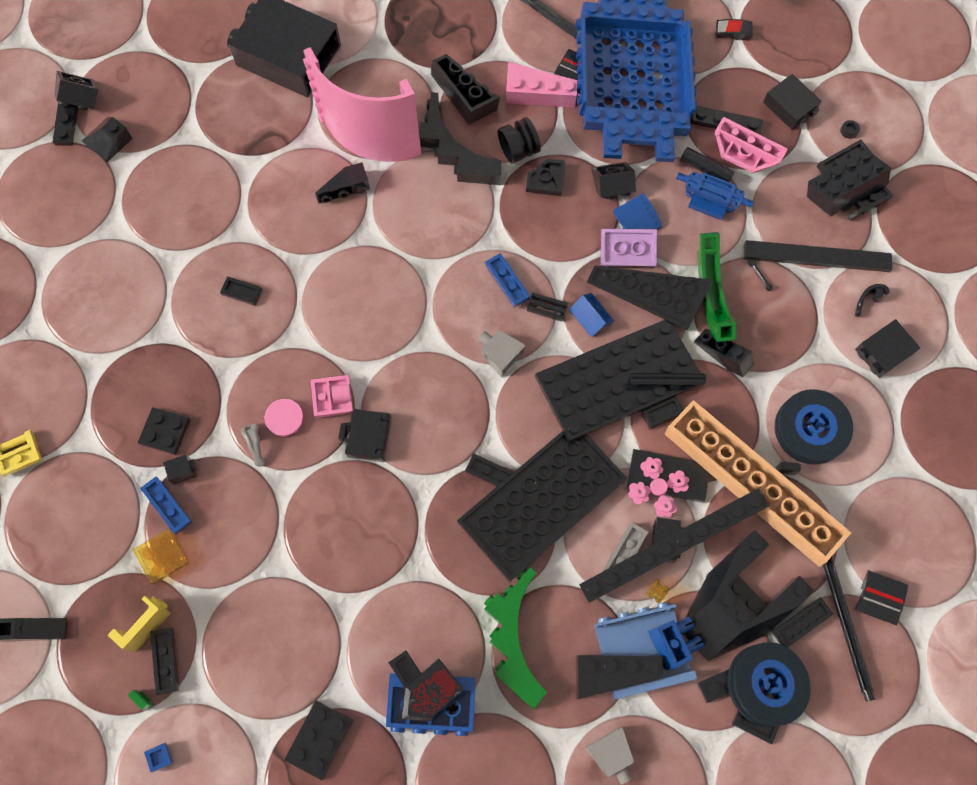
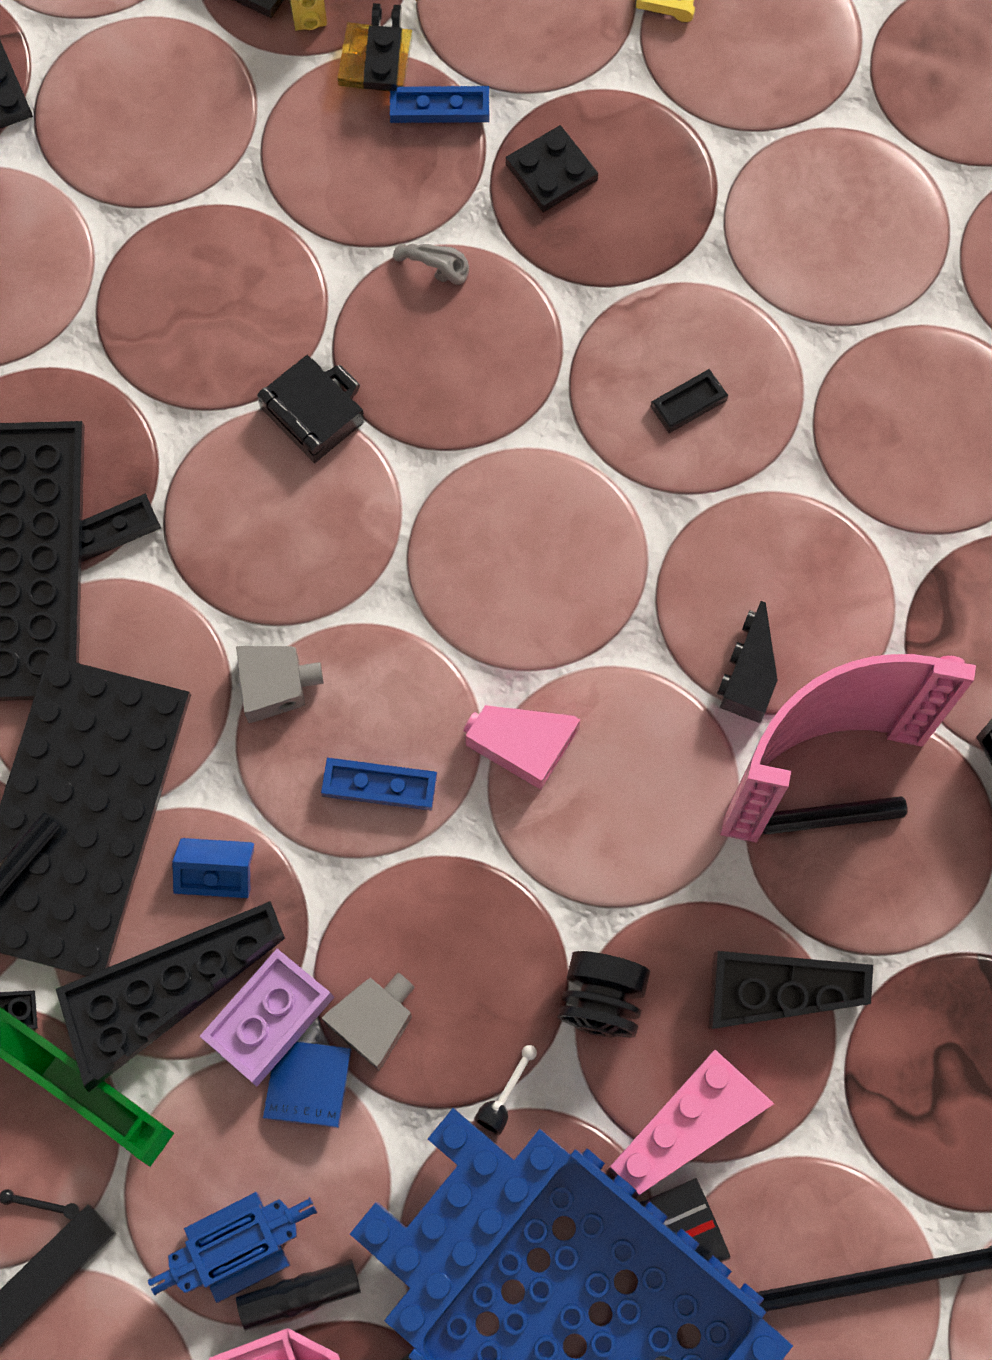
camera: 130 degrees right, 0 degrees up
(155, 550) = (383, 51): none -> black hinge
(180, 469) = (474, 148): black brick -> none
(284, 417) = (437, 324): bright pink tile -> none
(331, 396) = (412, 402): bright pink plate -> none
(445, 241) = (521, 740): none -> bright pink slope
(467, 165) = (685, 874): black arch -> none
(534, 297) = (278, 799): black tile -> none
(546, 178) = (504, 996): black plate -> none
(591, 152) = (494, 1114): none -> hinge
(595, 213) = (372, 1018): none -> light grey torso
(614, 180) = (408, 1103): black slope -> none

